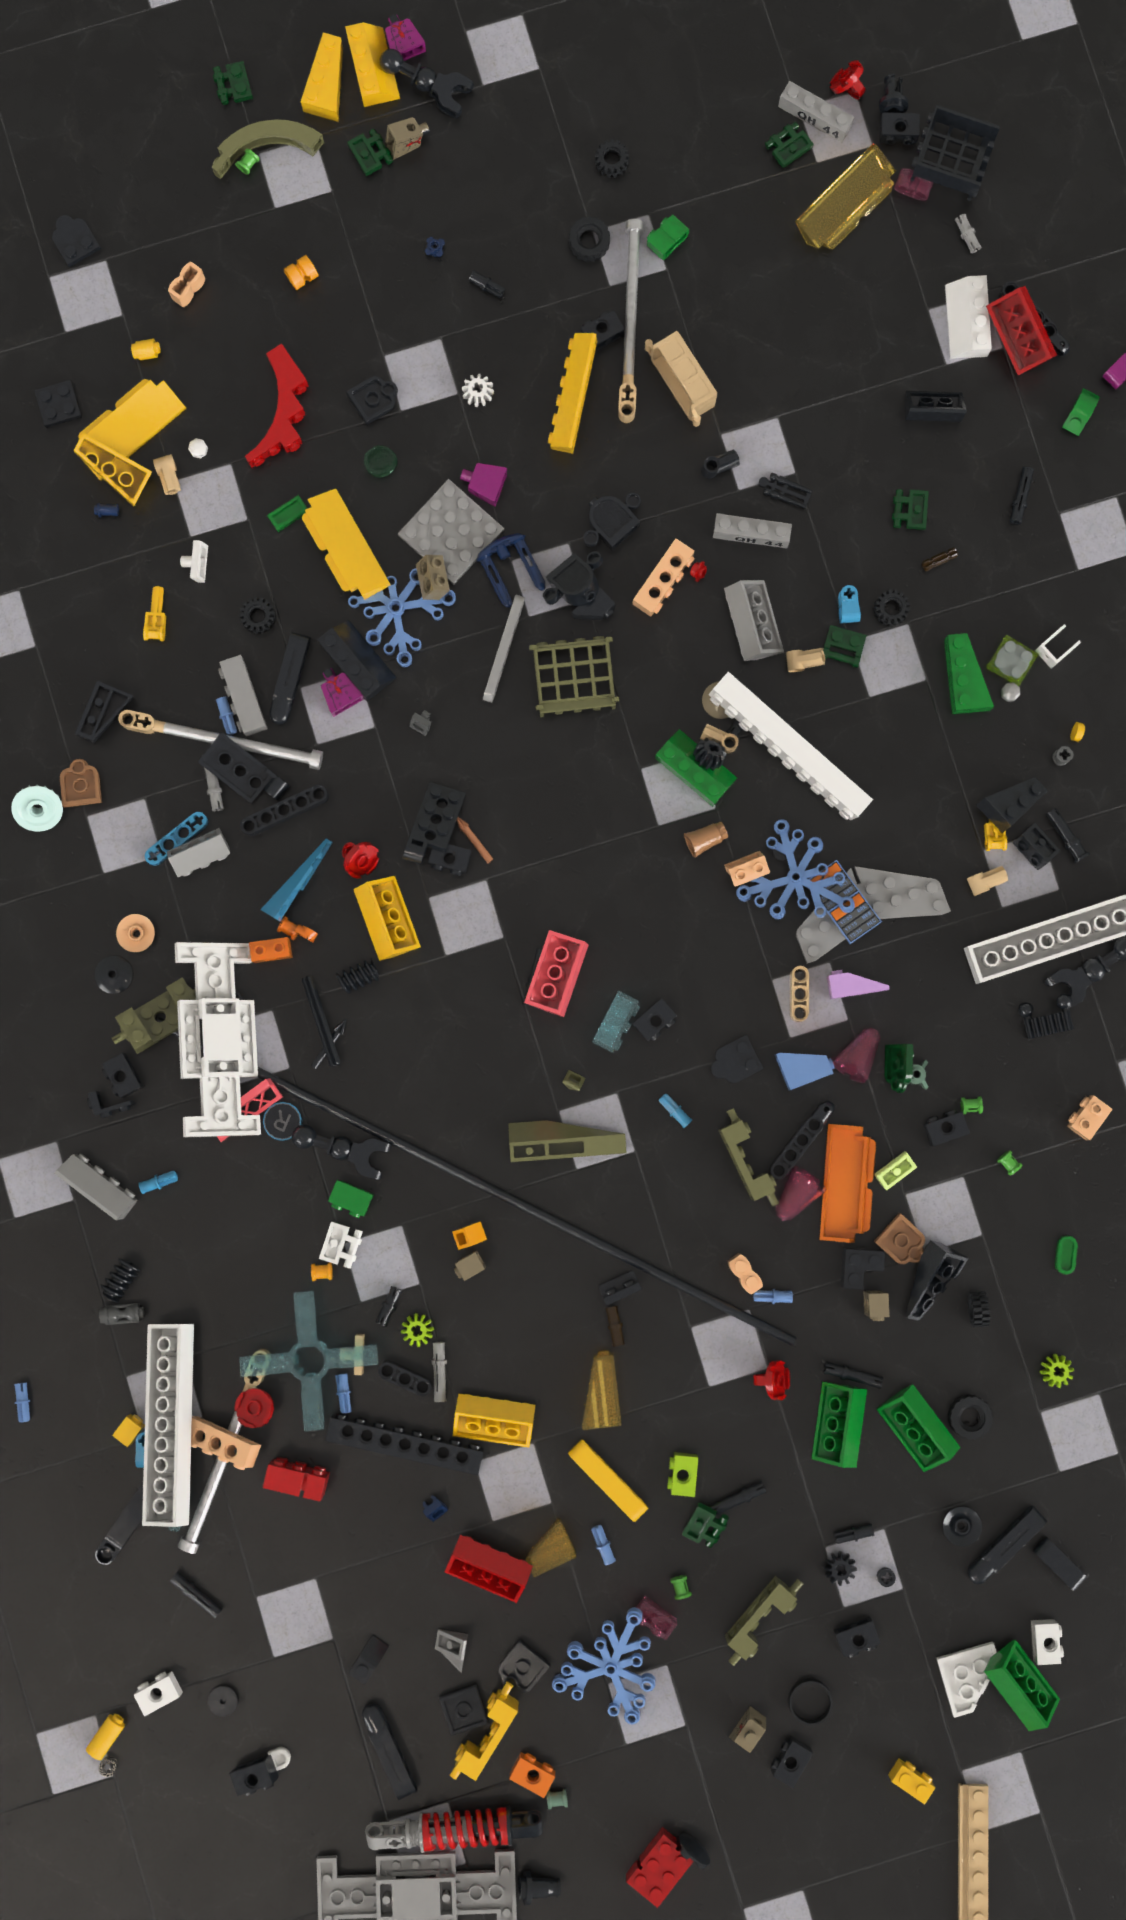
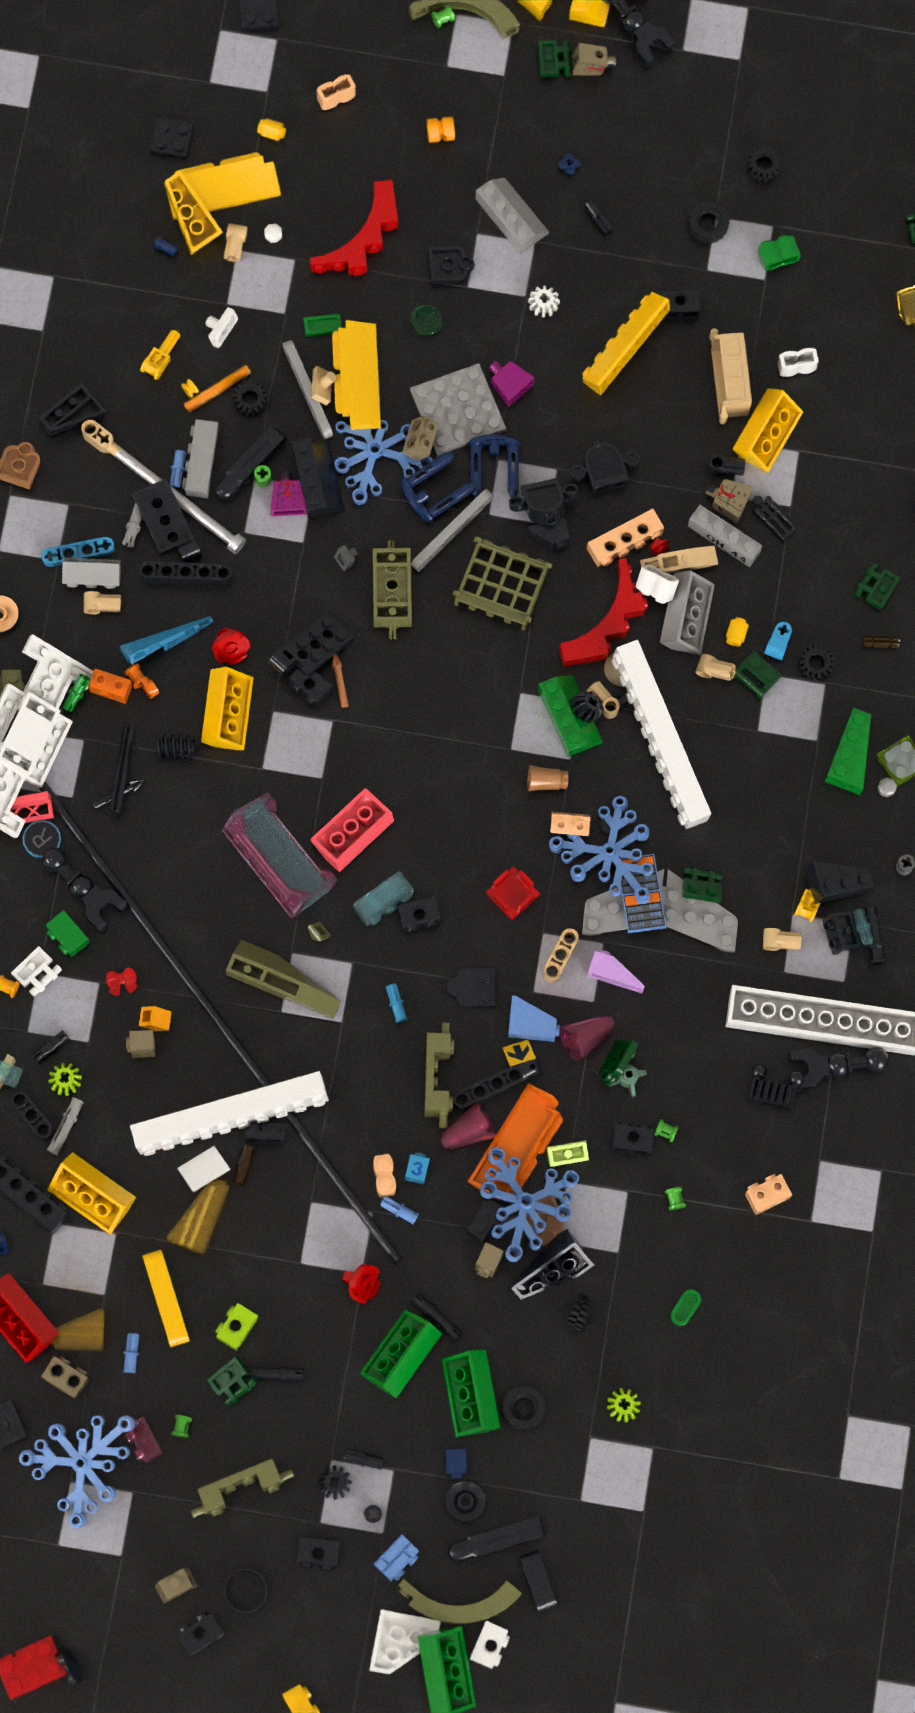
camera: 20 degrees right, 10 degrees down
(198, 634) = (189, 388): none -> yellow bush
(218, 878) = (96, 602): none -> tan piece
(226, 615) = (217, 388): none -> light orange axle
(243, 972) = (76, 692): none -> green pin
(305, 581) = (306, 388): none -> light grey beam
(306, 677) = (257, 473): none -> bright green bush
(316, 570) = (322, 384): none -> tan tile
(405, 321) = (510, 213): none -> light grey slope
(424, 1208) = (114, 980): none -> red piece
(458, 636) = (417, 500): none -> dark blue piece
(485, 749) = (392, 607): none -> olive brick
(501, 1030) = (277, 856): none -> windscreen
(555, 1602) = (62, 1381): none -> dark tan brick
(577, 1293) = (229, 1113): none -> white brick
(582, 1348) = (203, 1168): none -> white sticker
(634, 229) = (752, 232): flat silver piece -> none
(695, 640) = (594, 644): none -> red arch
(715, 607) = (657, 584): none -> white brick
(723, 576) = (683, 560): none -> tan slope
(727, 957) = (513, 892): none -> red panel
(737, 333) = (797, 362): none -> white brick
(739, 493) = (730, 498): none -> dark tan torso
(740, 410) = (768, 429): none -> yellow slope
(770, 1251) = (417, 1168): none -> dark azure brick
(806, 615) = (736, 631): none -> yellow brick
(806, 1101) = (519, 1053): none -> yellow sticker
(889, 1259) = (520, 1223): none -> medium blue plant
(893, 871) = (701, 889): none -> dark green plate
(928, 1607) = (397, 1558): none -> medium blue brick
(936, 1496) = (456, 1463): none -> dark blue brick
(1009, 1627) = (461, 1614): none -> olive arch
(1054, 832) = (863, 926): none -> clear light blue axle

